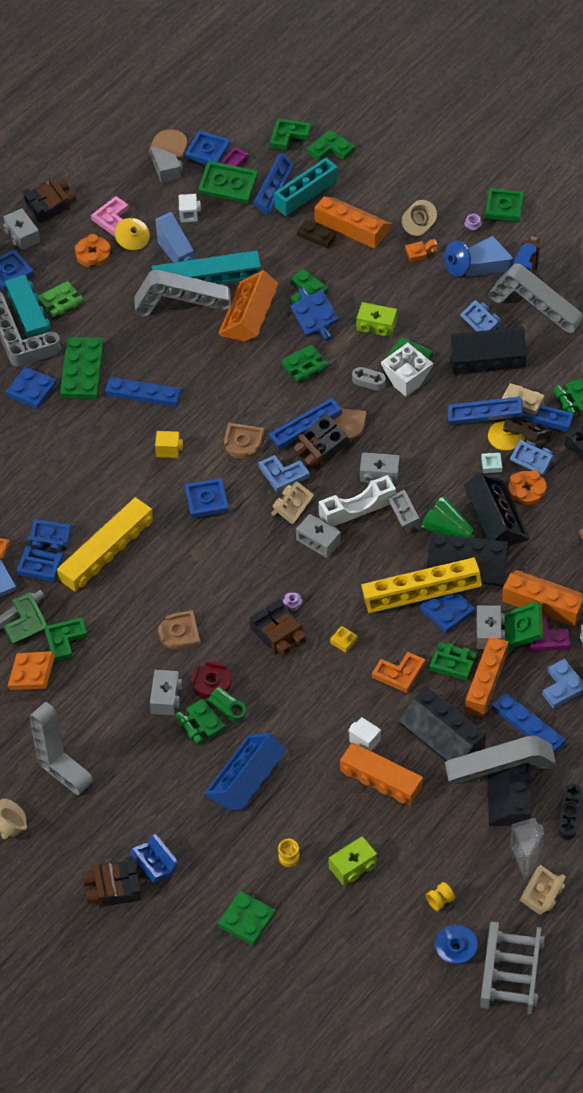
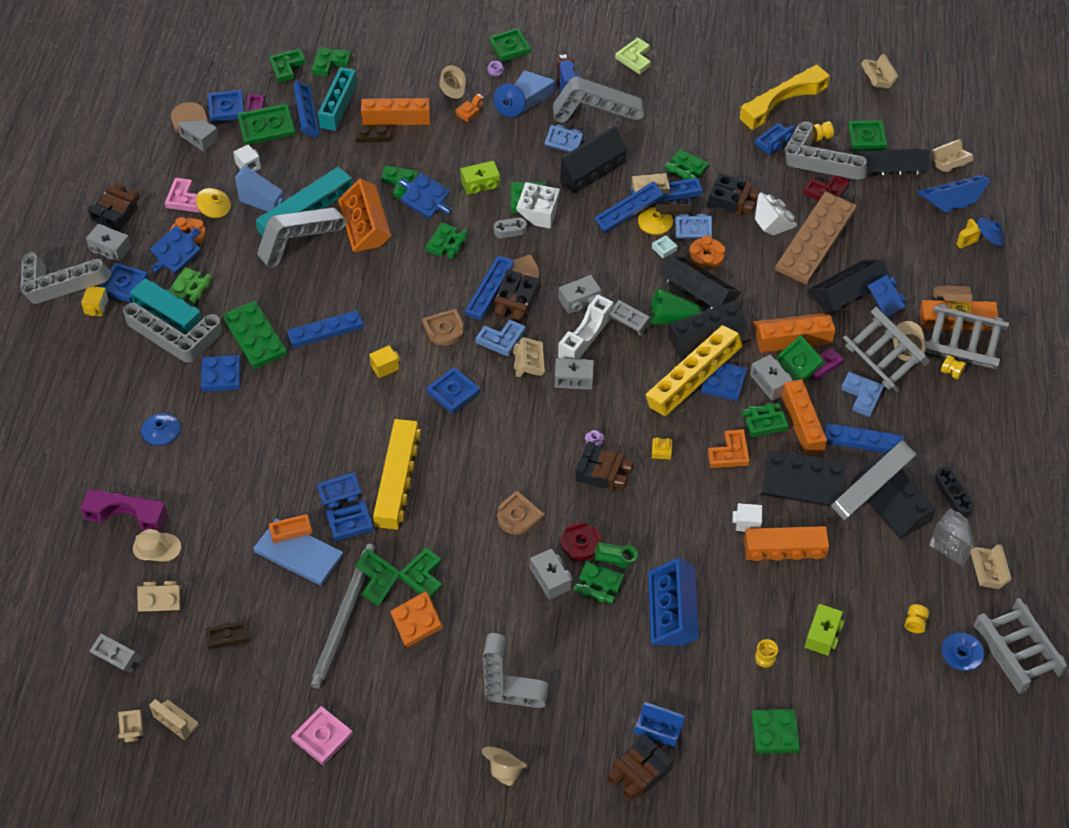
camera: 35 degrees left, 0 degrees up
(69, 261) = (175, 250): none -> blue plate

